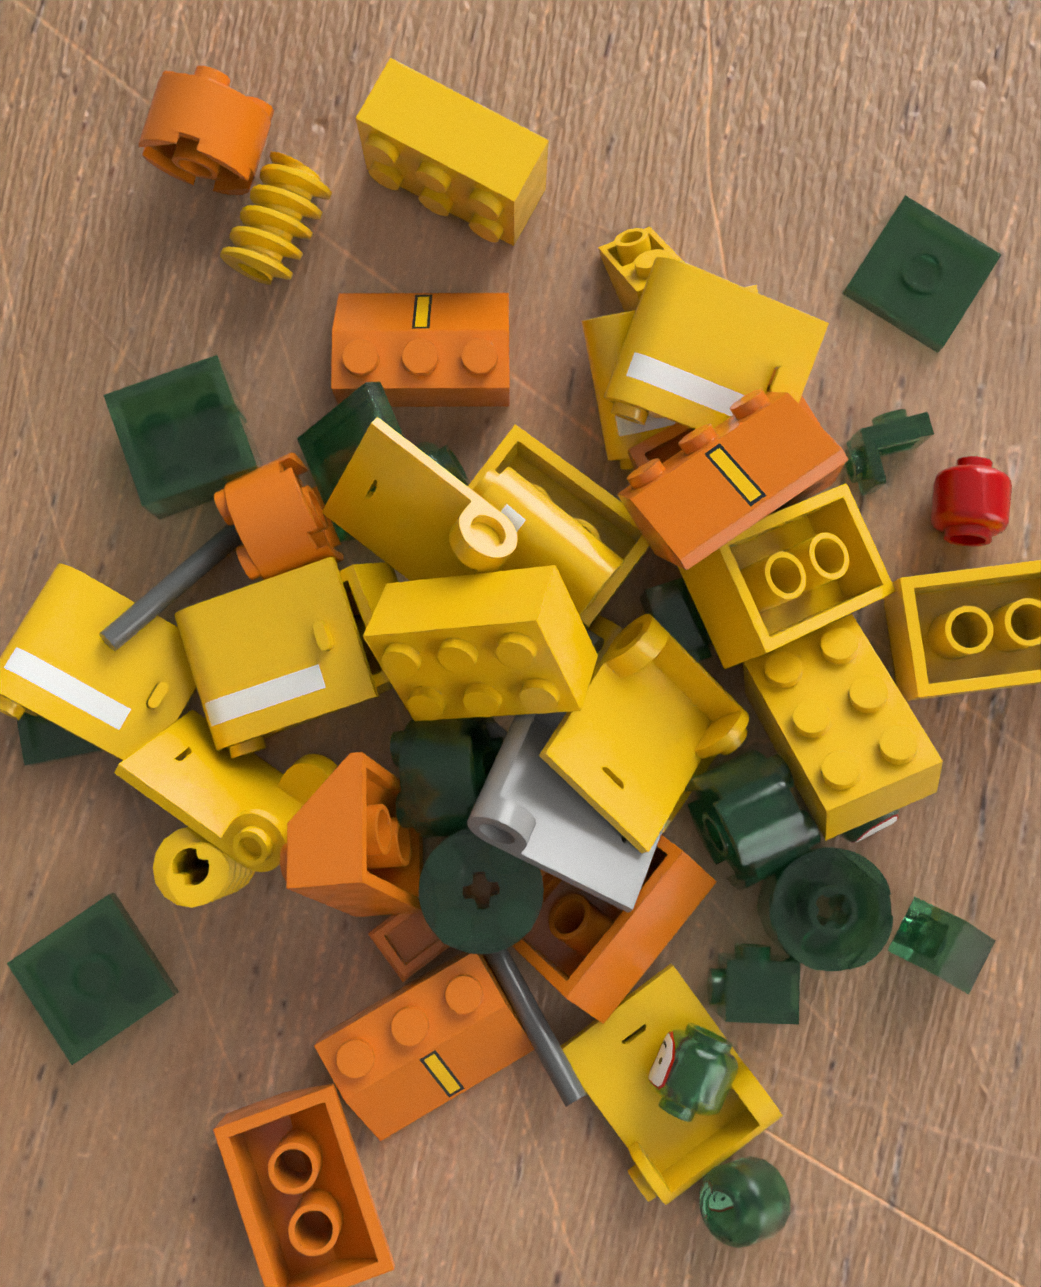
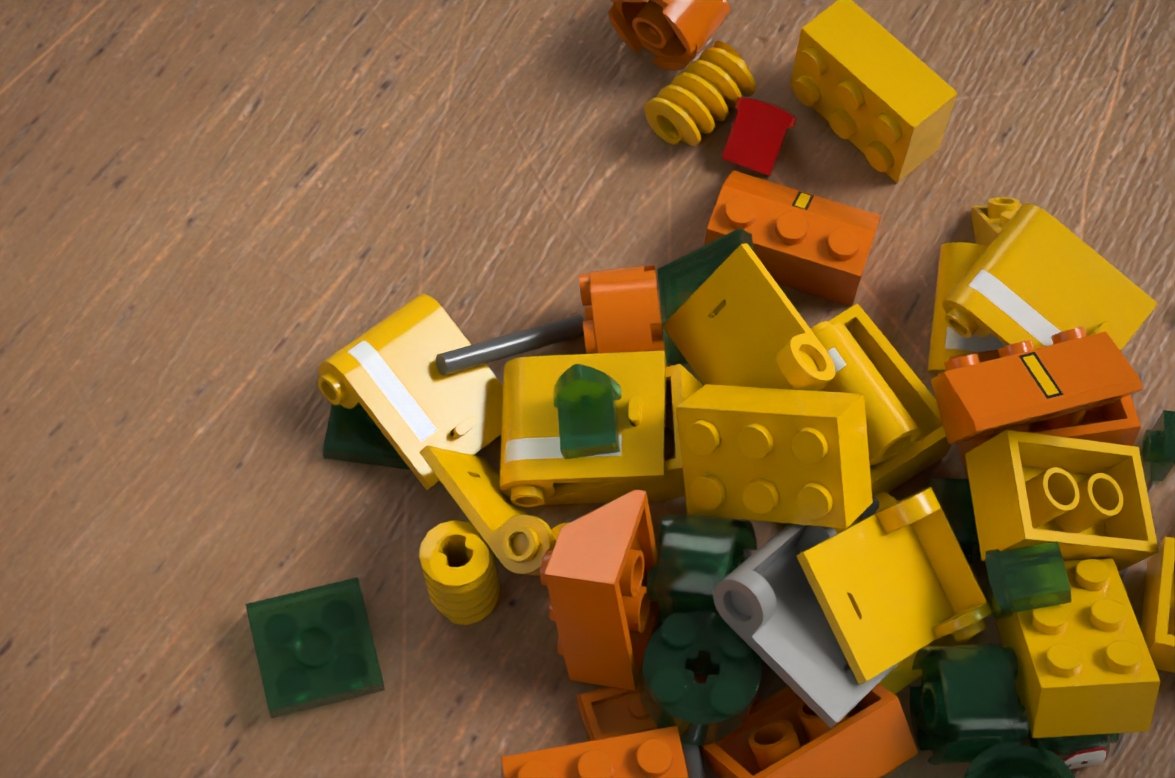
camera: 20 degrees right, 20 degrees down
(183, 435) = (565, 228): clear green piece -> none
(276, 658) = (587, 412): none -> clear green tile
(351, 243) = (757, 134): none -> red tile
(777, 685) = (1026, 579): none -> clear green tile

